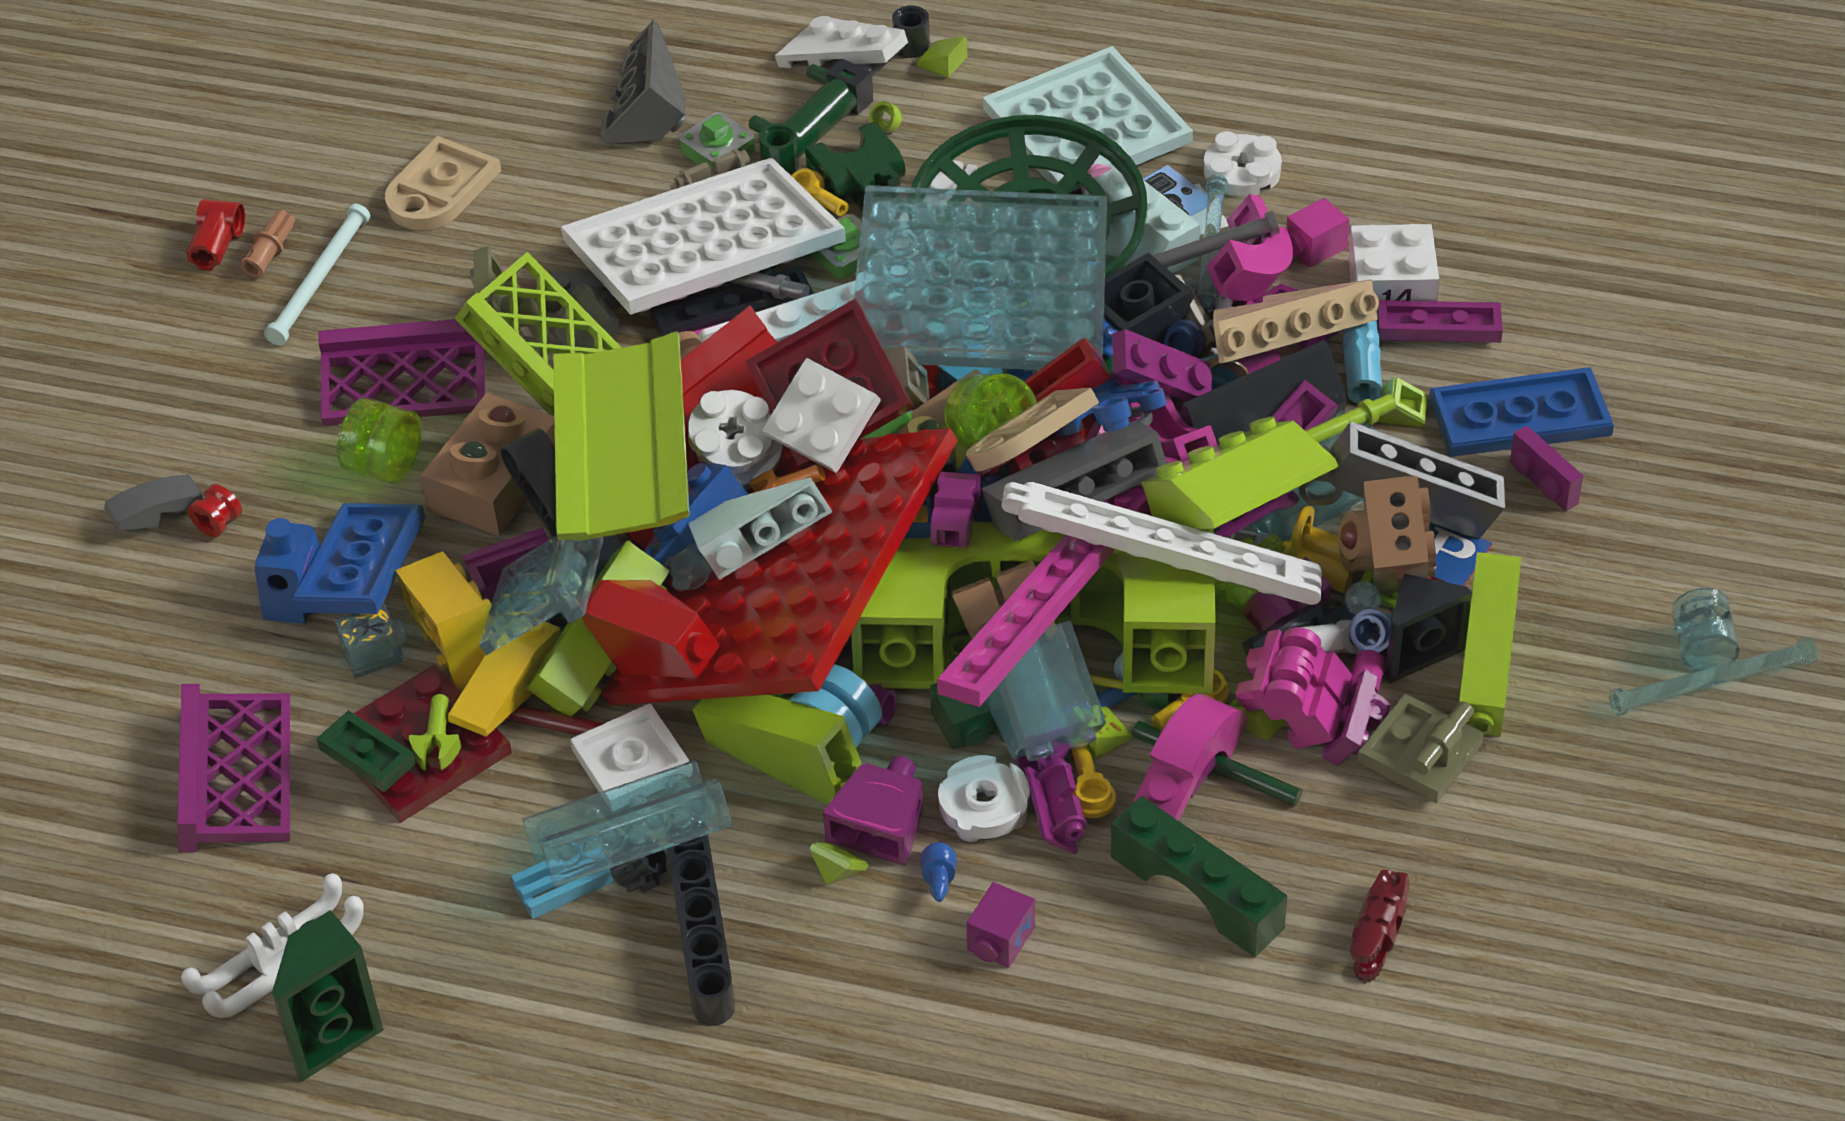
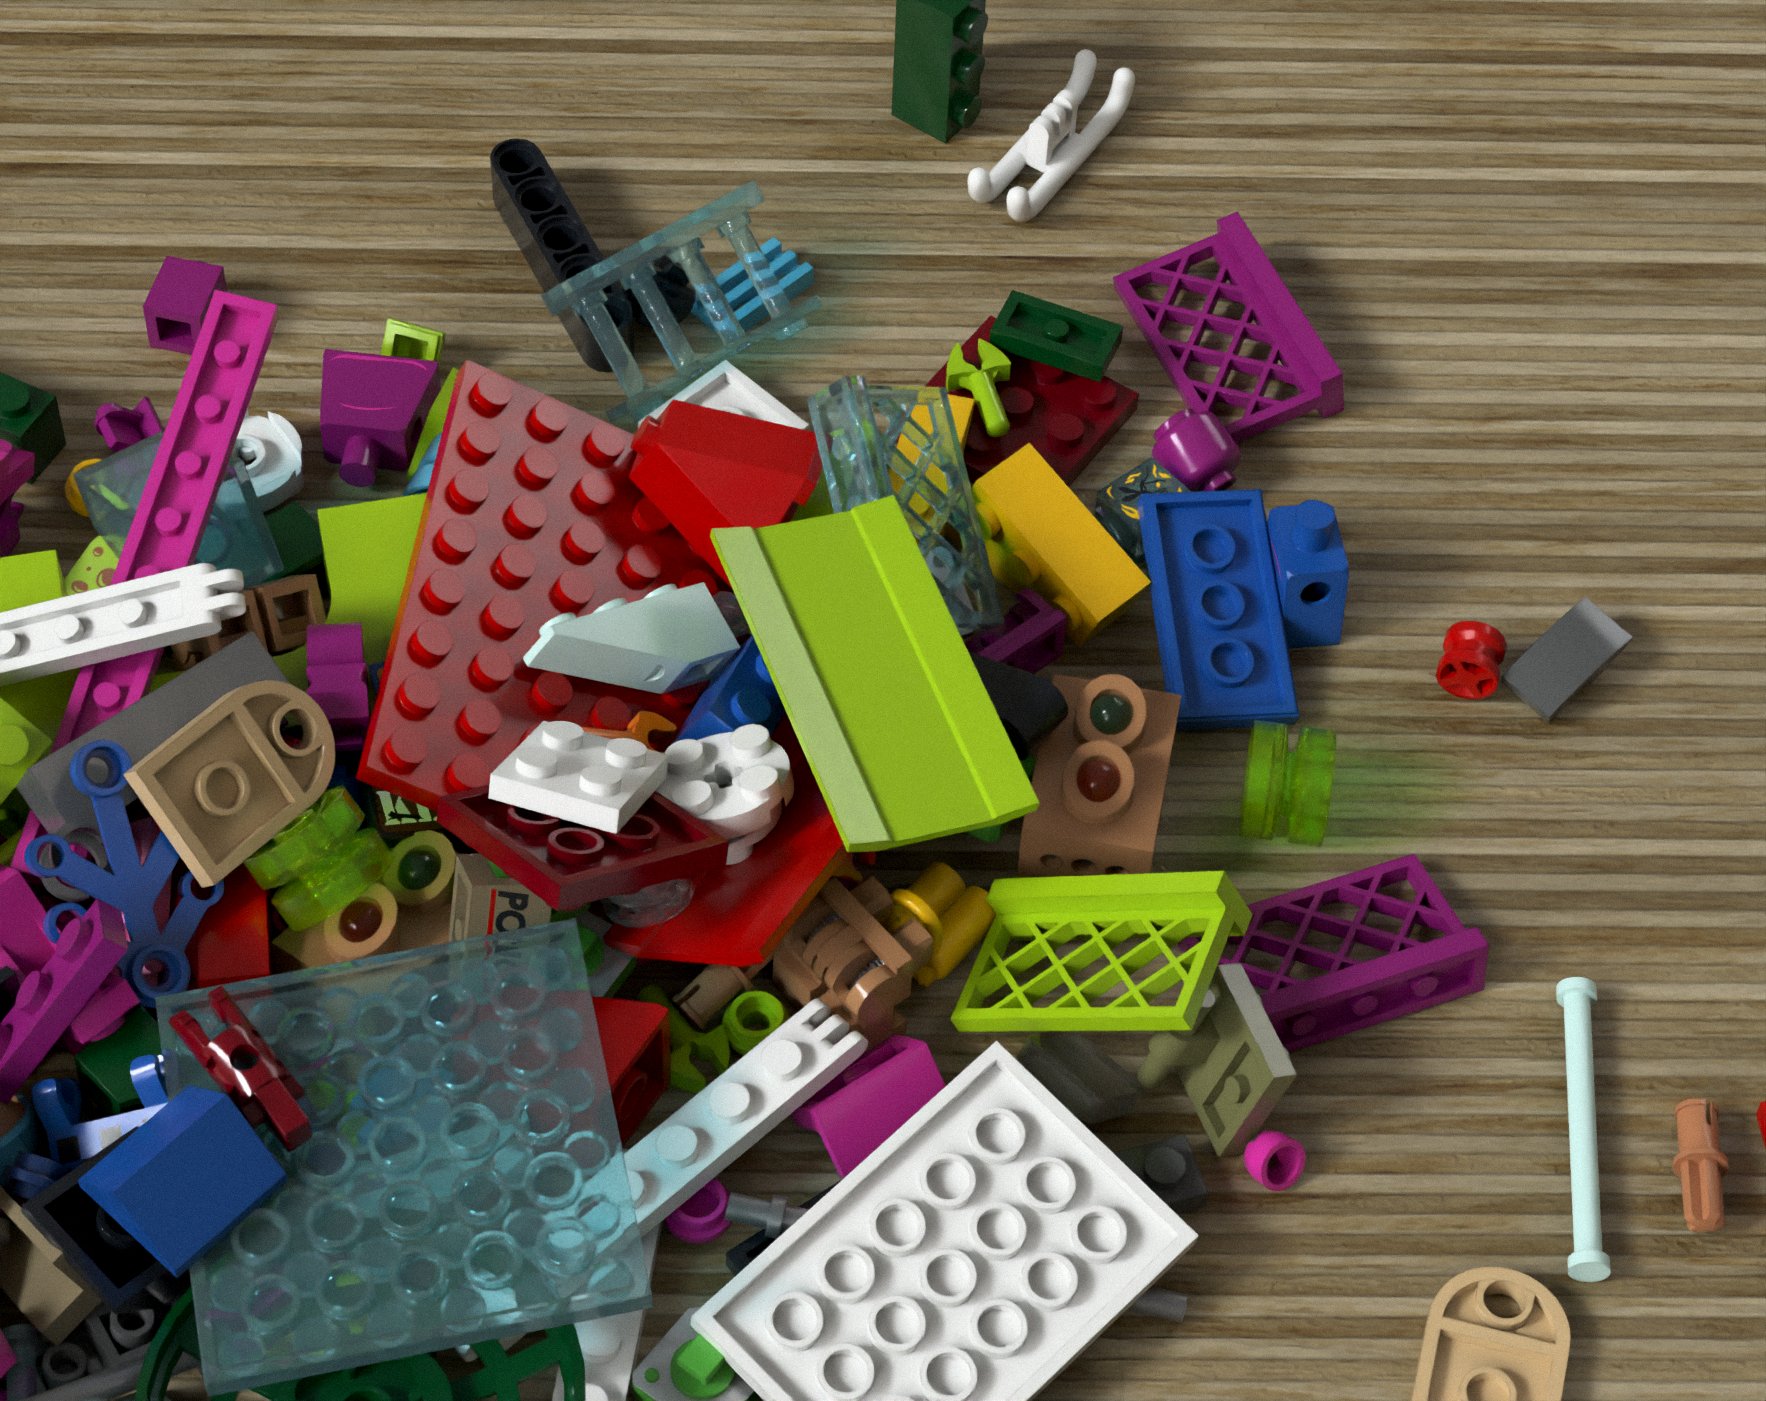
camera: 160 degrees right, 5 degrees up
(310, 672) = (1197, 451): none -> magenta head
(938, 868) = (286, 388): blue bar -> none
(1056, 297) = (247, 1070): none -> dark red hinge
(1073, 369) = (171, 960): red slope -> none
(1106, 269) = (185, 1177): none -> blue slope

